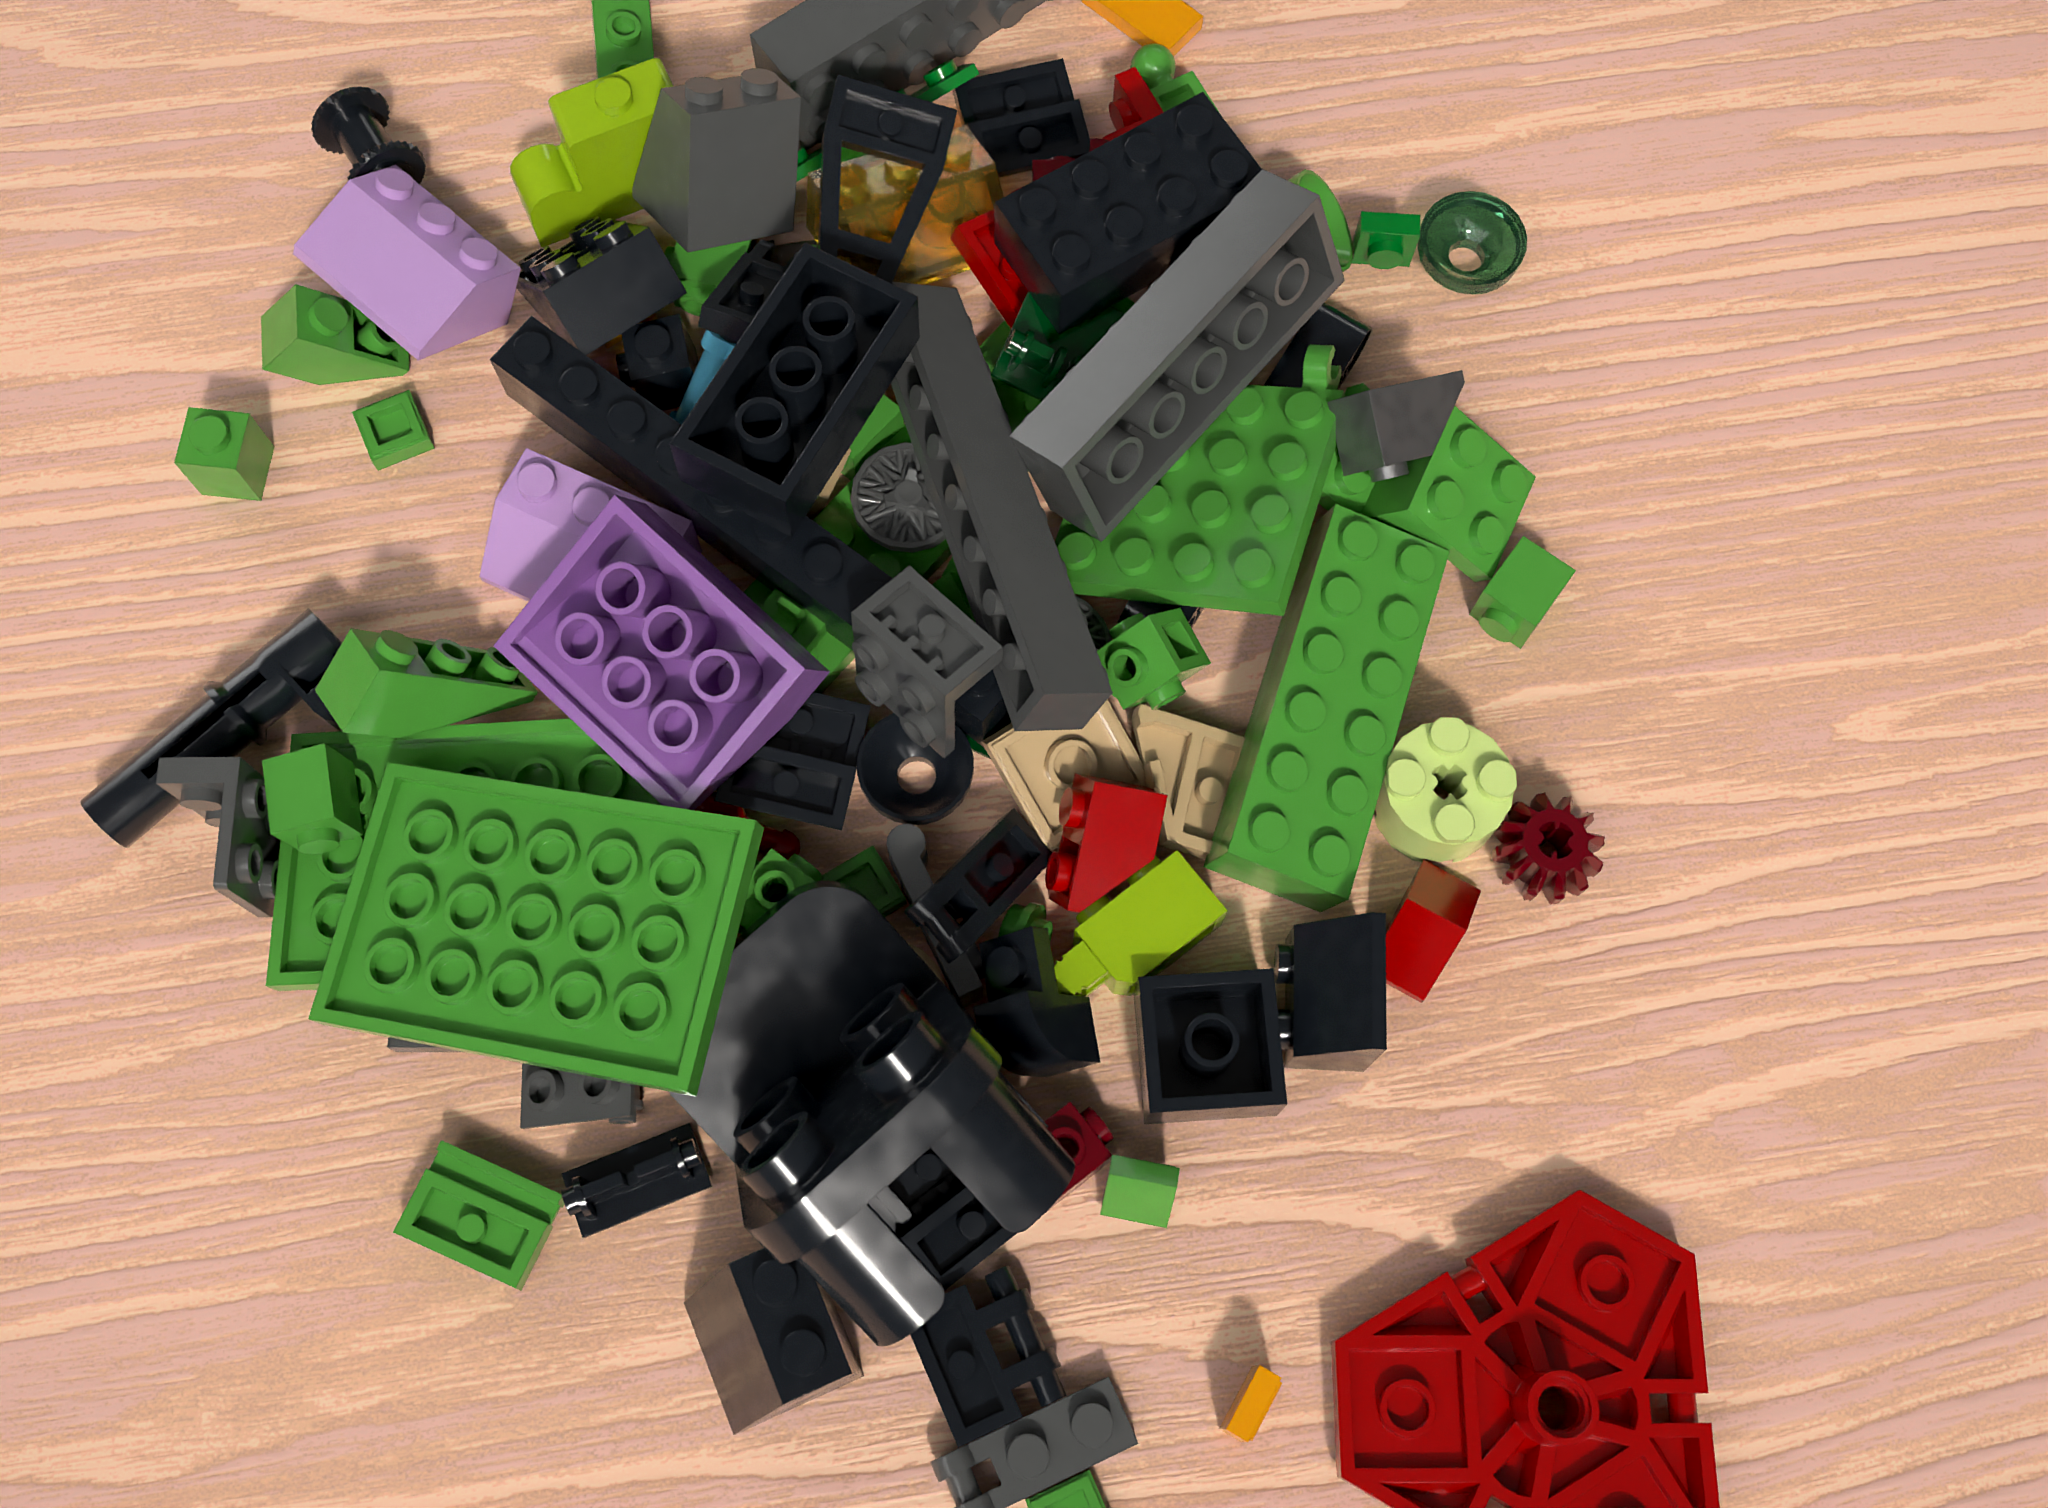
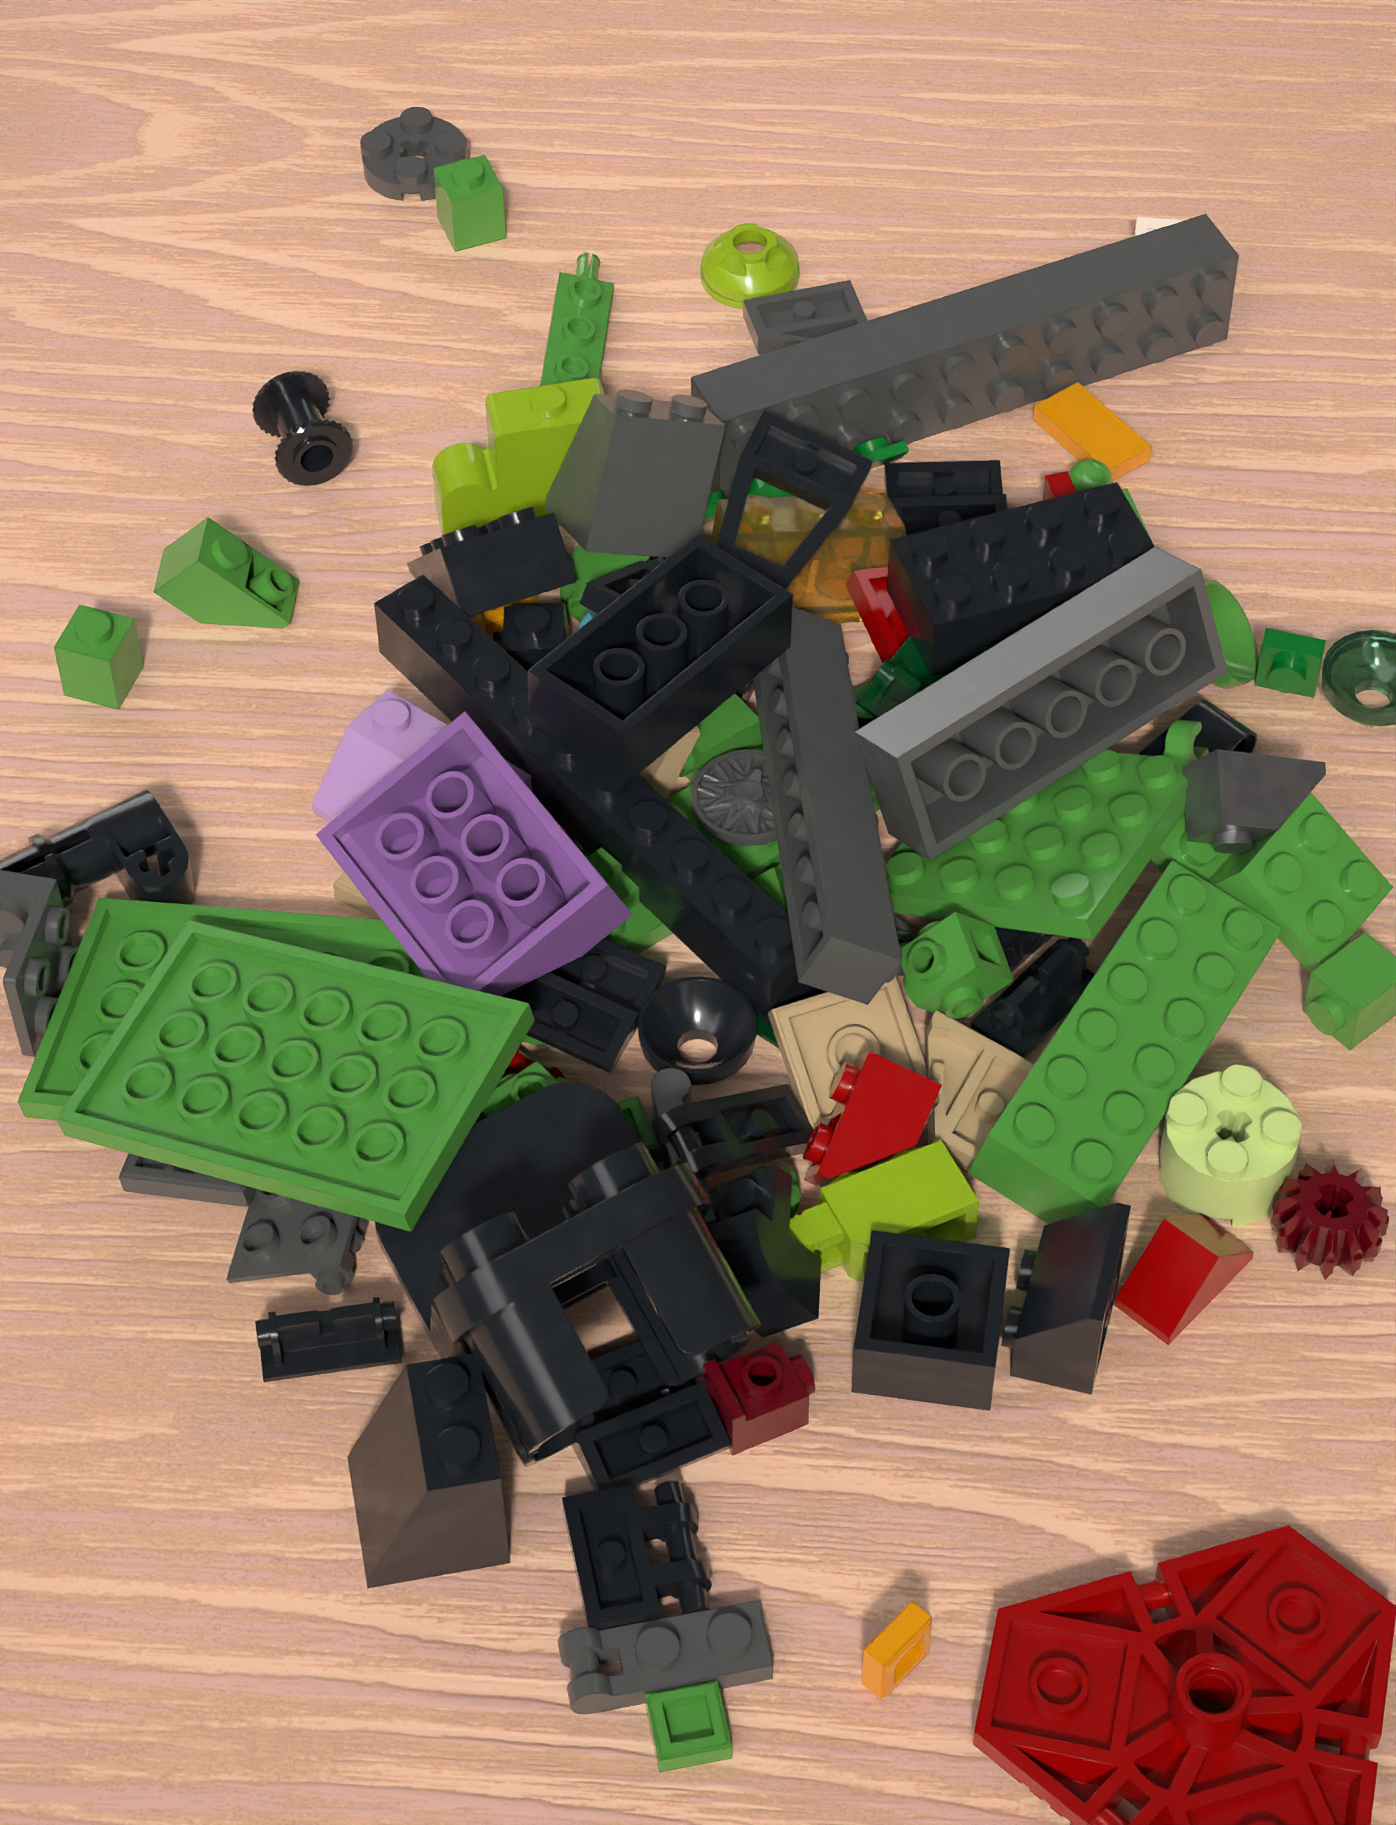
camera: 15 degrees right, 20 degrees down
(312, 799) = (108, 941): bright green brick -> none
(393, 430) = (261, 669): bright green tile -> none
(409, 263) = (318, 524): lavender slope -> none
(413, 685) = (226, 862): bright green slope -> none
(480, 1215) = (170, 1338): bright green plate -> none
(919, 656) = (712, 902): dark grey bracket -> none
(1139, 1191) = (830, 1440): bright green tile -> none
(1235, 649) = (1037, 998): none -> black hinge

